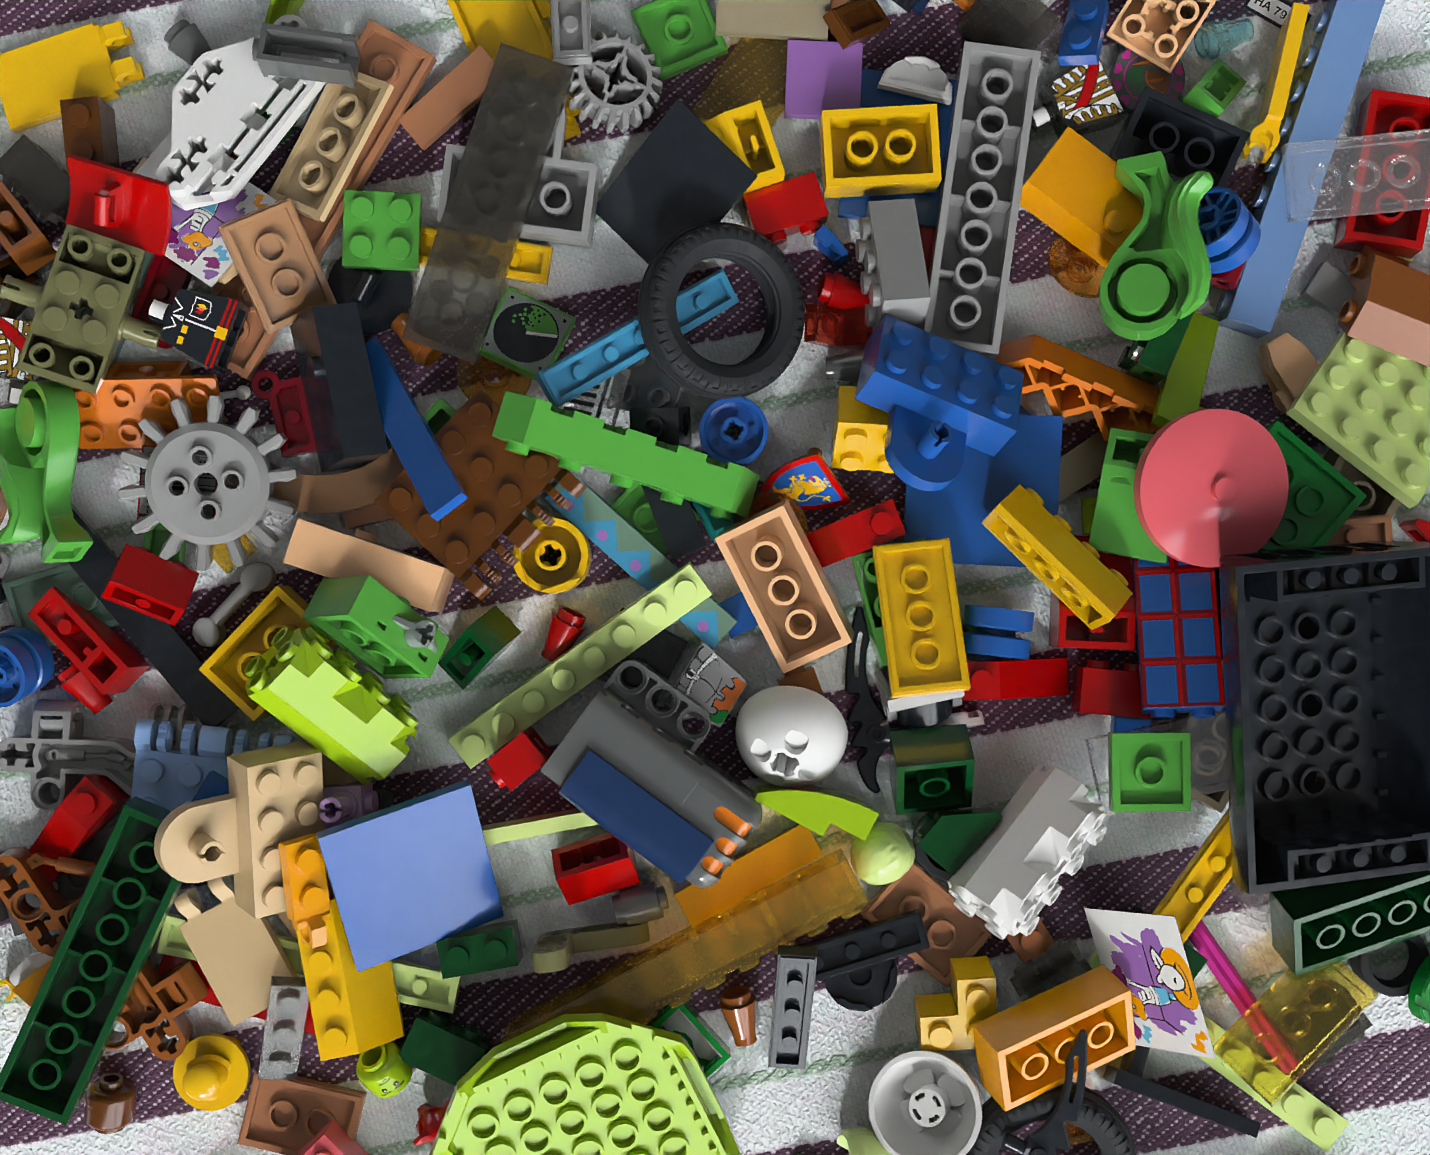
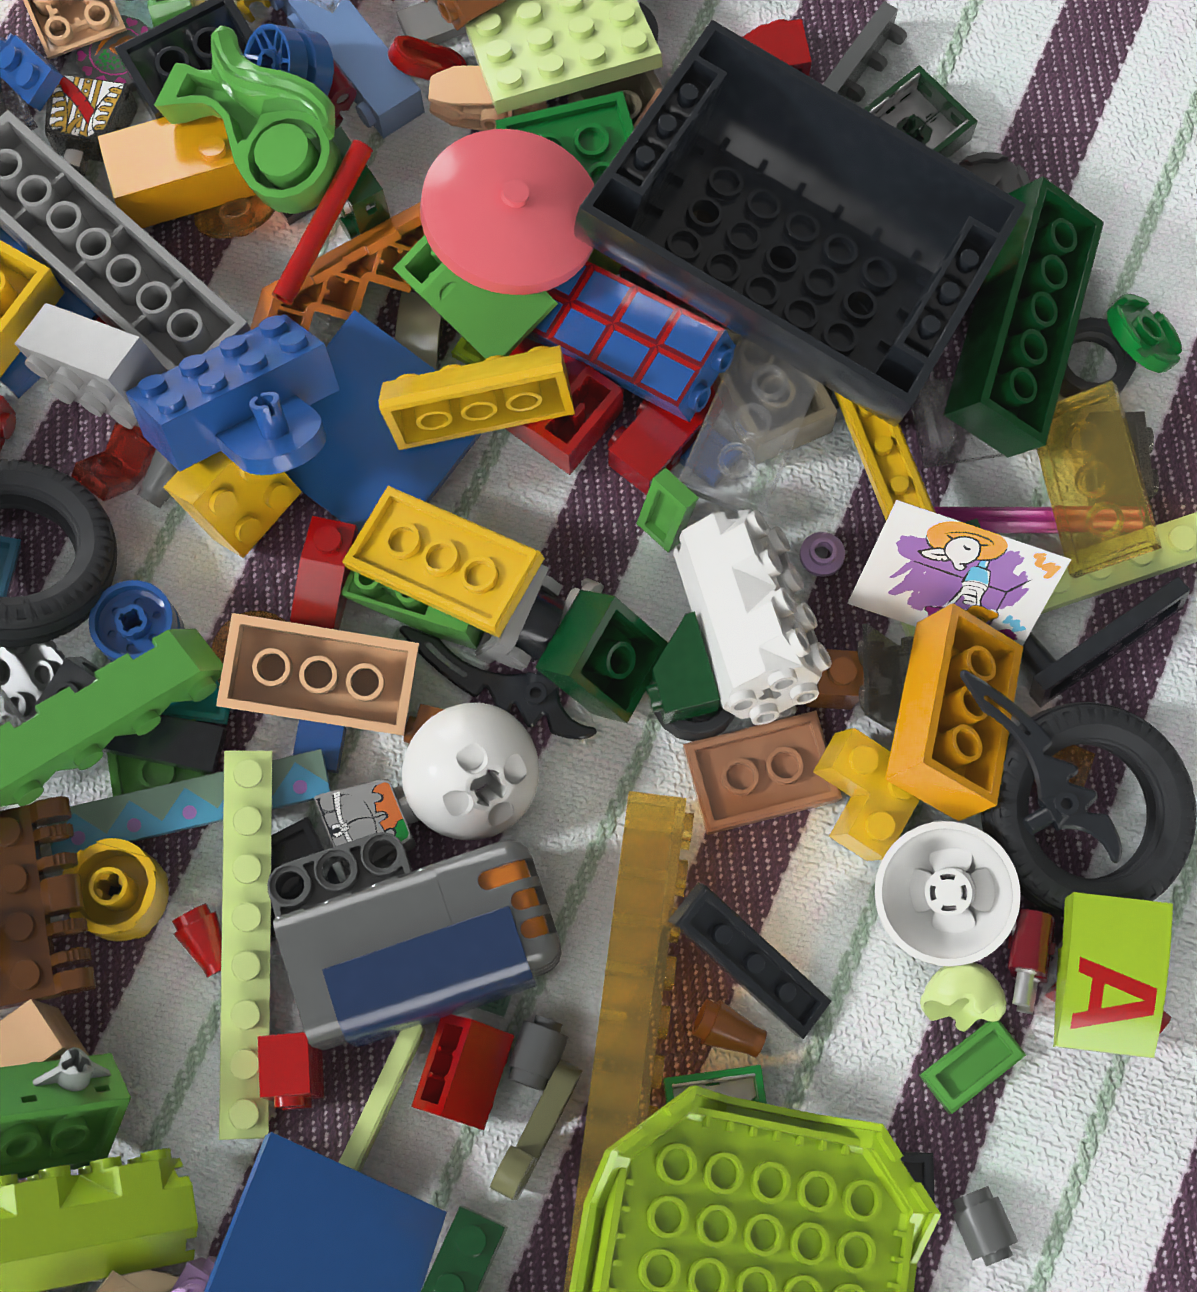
camera: 55 degrees left, 15 degrees down
(479, 647) = (149, 1037): dark green slope -> none
(750, 873) = (586, 920): yellow tile -> none
(808, 482) = (237, 585): shield -> none
(818, 807) = (563, 791): lime slope -> none
(830, 246) = (36, 419): blue tile -> none
(840, 292) = (86, 438): red cone -> none
(864, 987) = (768, 876): black tile -> none
(869, 945) = (744, 840): black tile -> none
(883, 855) = (658, 763): yellowish green hair -> none
(997, 631) = (517, 503): blue wheel -> none
(1017, 678) = (578, 523): red slope -> none
(1066, 740) = (667, 509): none -> bright green tile
(1099, 861) = (819, 566): none -> lavender plate
(1111, 353) = (322, 222): none -> red piece
(1149, 771) = (744, 442): bright green plate -> none
(1186, 378) = (398, 177): lime tile -> none
(1299, 315) = (422, 57): none -> red tile

